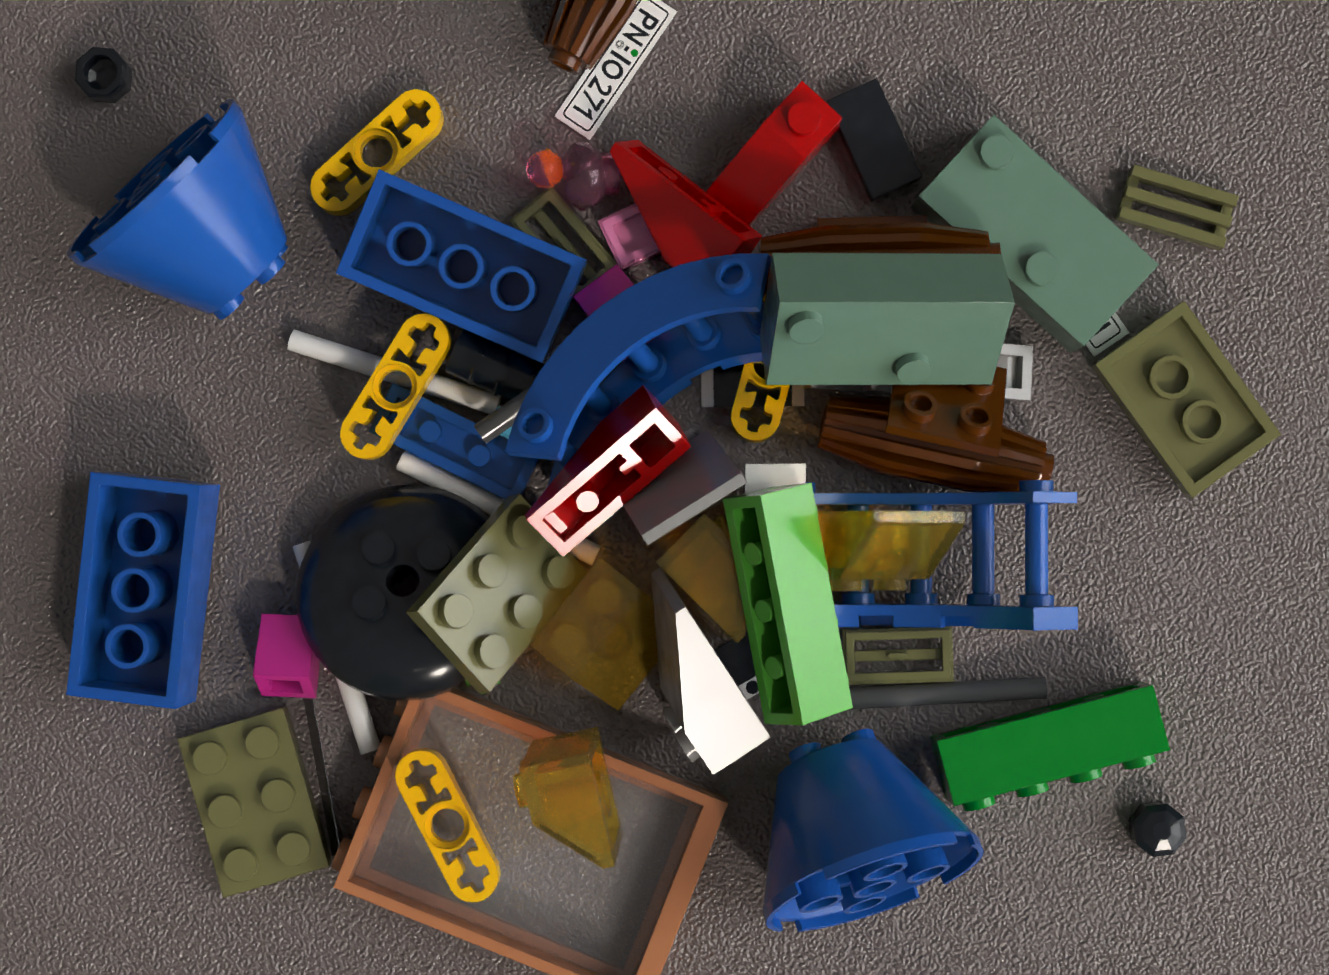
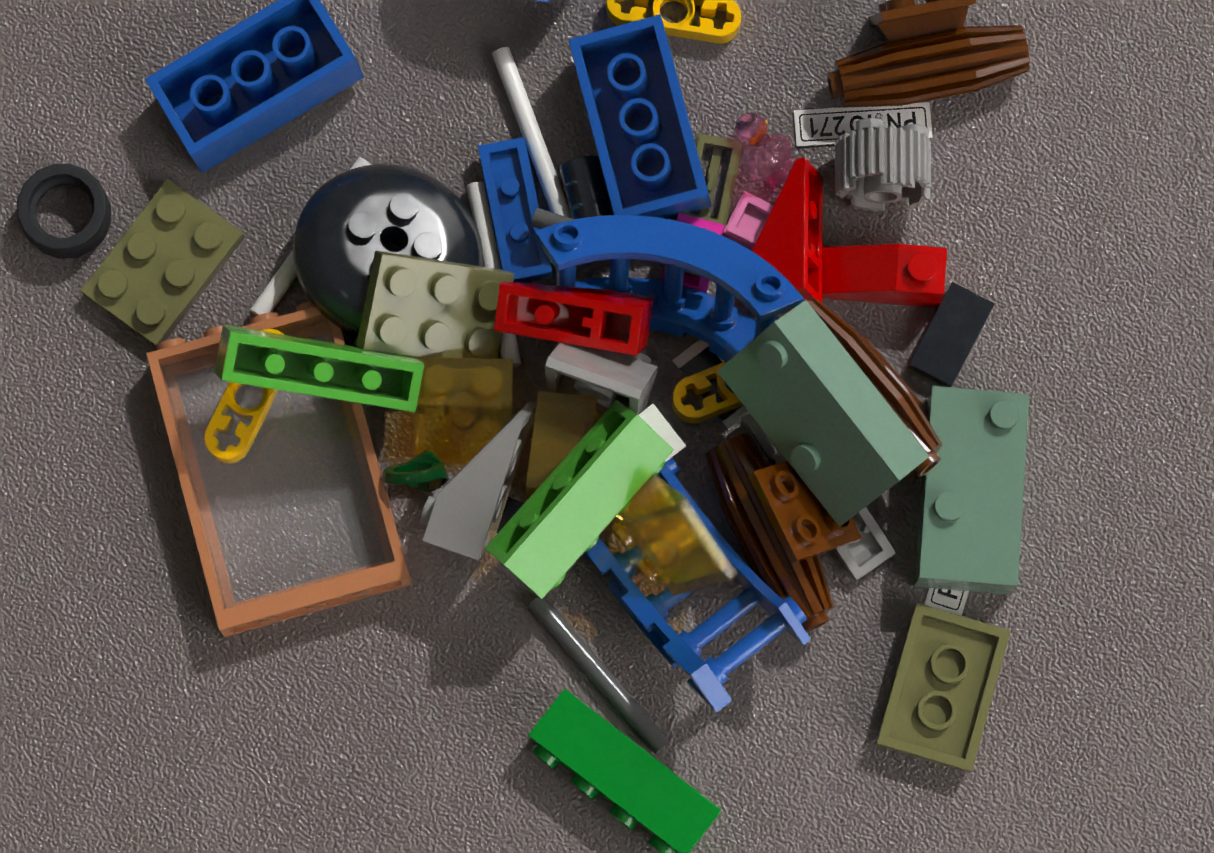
camera: 50 degrees right, 10 degrees down
(92, 863) = (48, 179): none -> black tyre
(284, 659) = (275, 208): dark pink brick -> none
(322, 776) = (217, 291): black sticker -> none
(372, 390) = (558, 151): yellow beam -> none
(477, 751) = (318, 368): none -> bright green brick
(571, 794) = (336, 456): clear yellow slope -> none
(635, 717) = (422, 472): none -> dark green piece
(677, 76) = (883, 165): none -> light grey brick
(856, 836) = (450, 682): blue cone -> none
(944, 653) = (630, 657): olive tile -> none
(1220, 219) = (1091, 572): olive tile -> none

